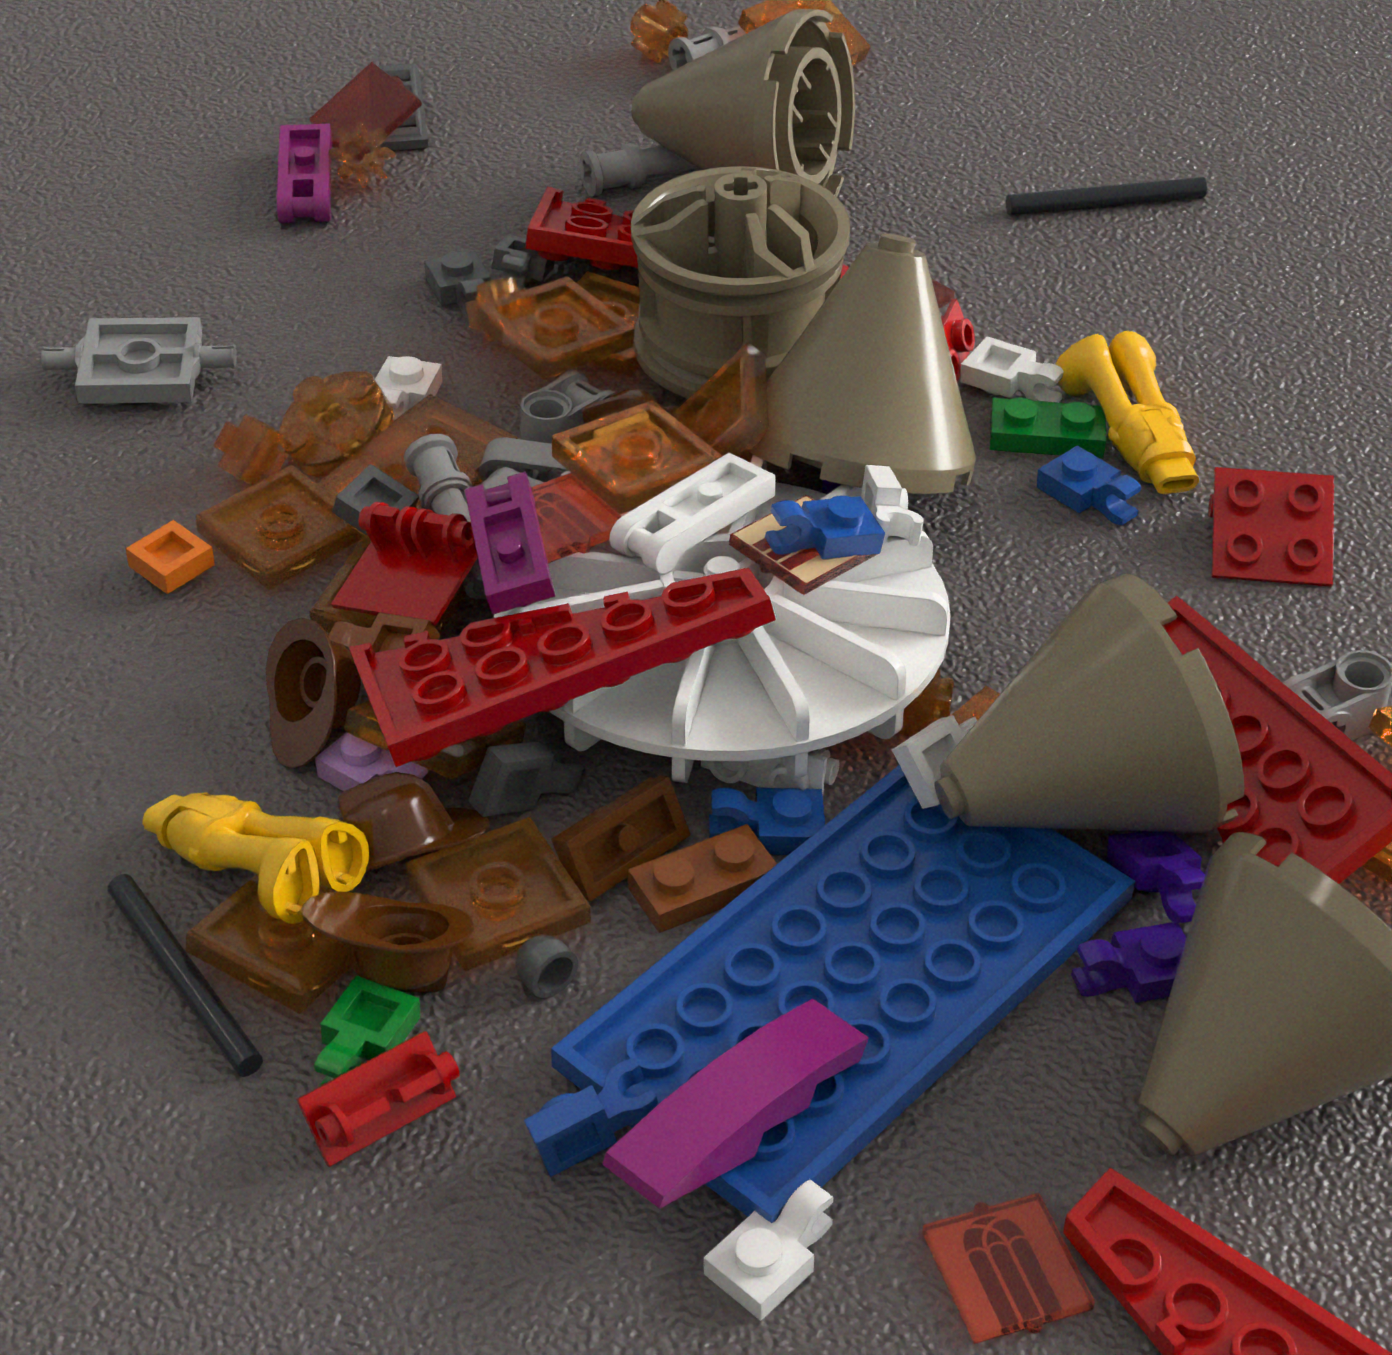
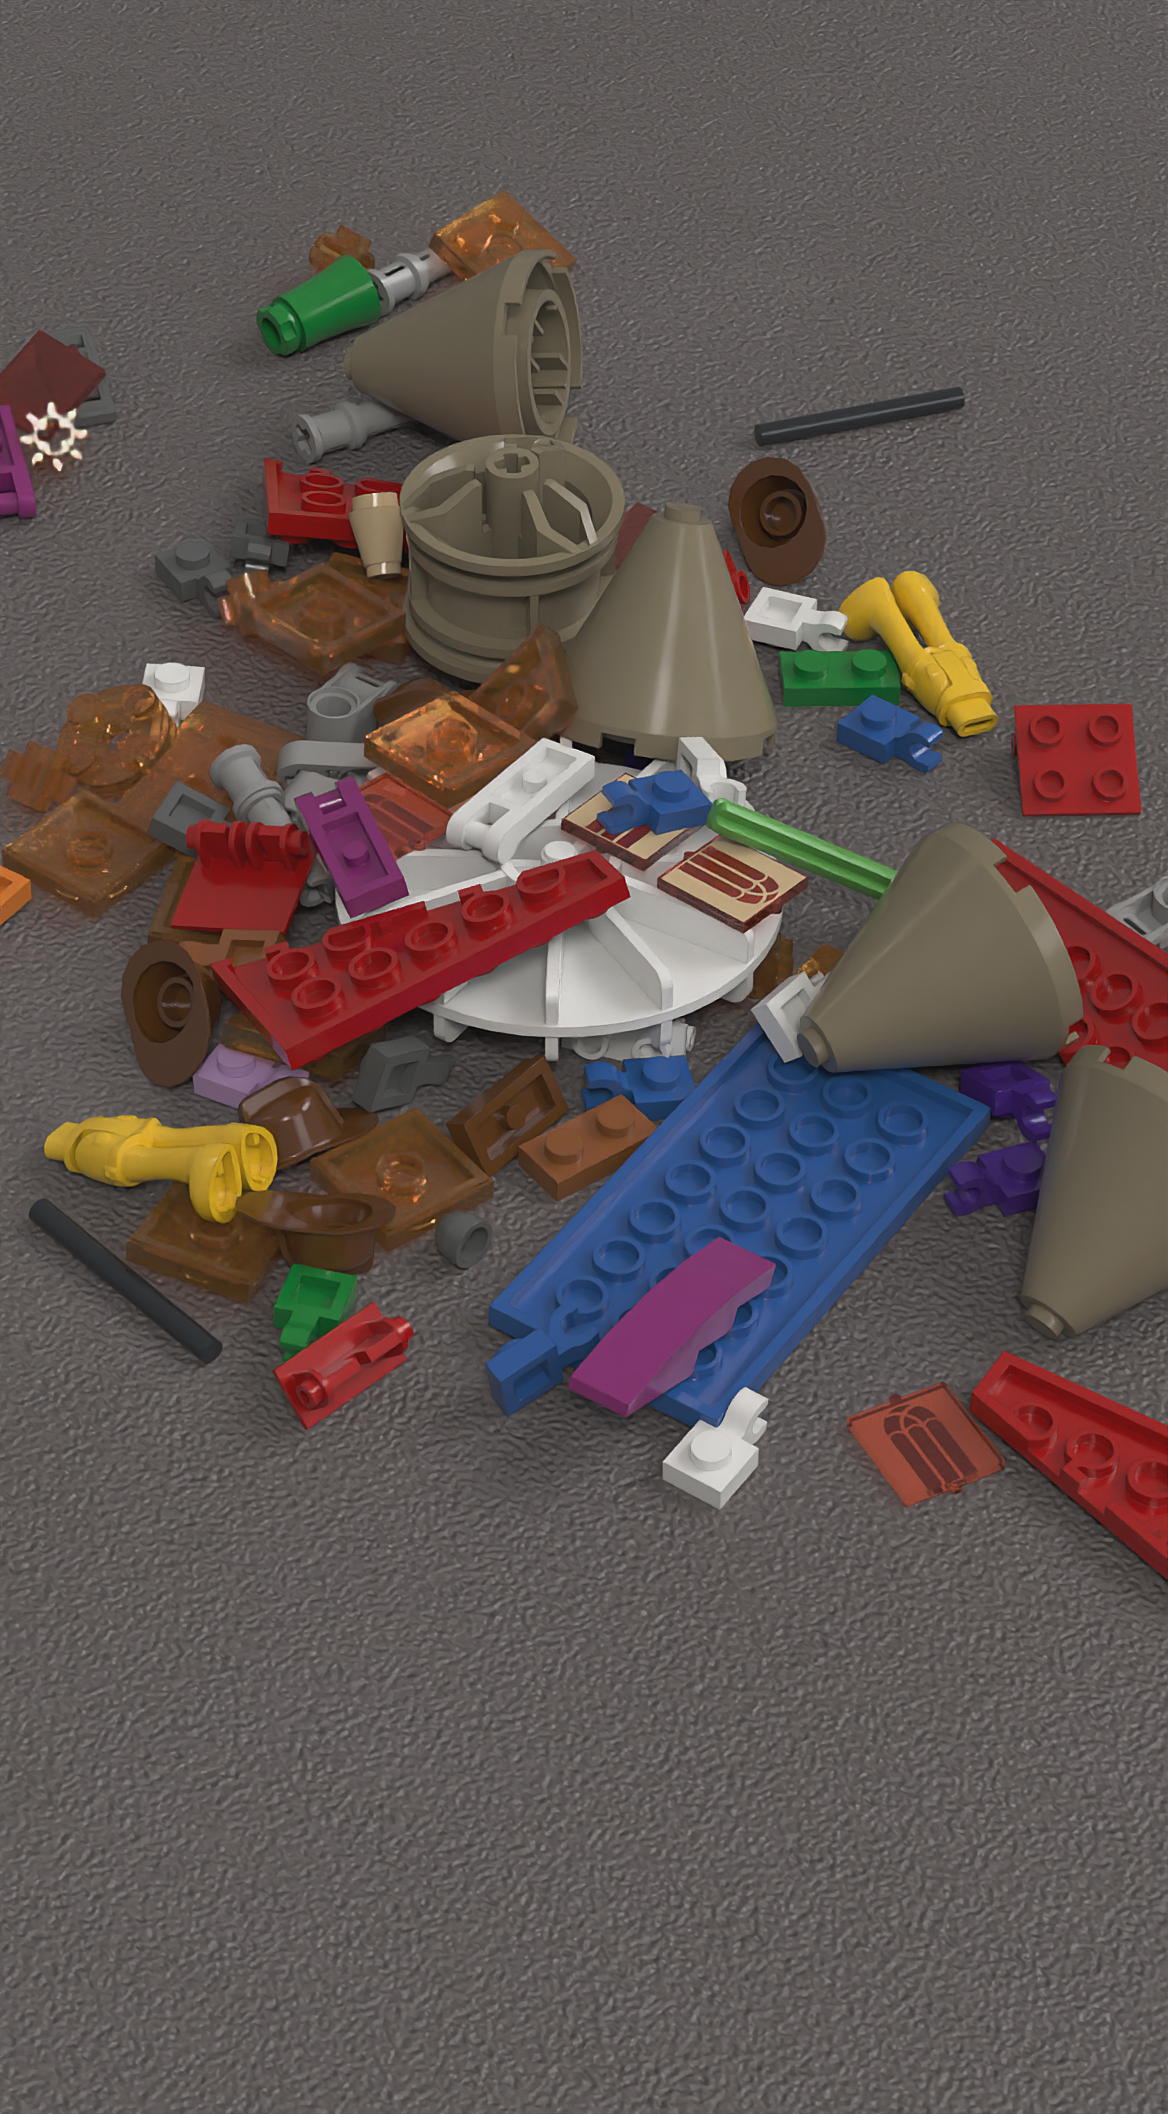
camera: 10 degrees left, 0 degrees up
(620, 257) = (378, 533): none -> tan cone
(626, 65) = (320, 308): none -> green plant
(892, 615) = (732, 883): none -> piece
(965, 585) = (799, 848): none -> bright green axle
(1010, 277) = (777, 521): none -> reddish brown piece

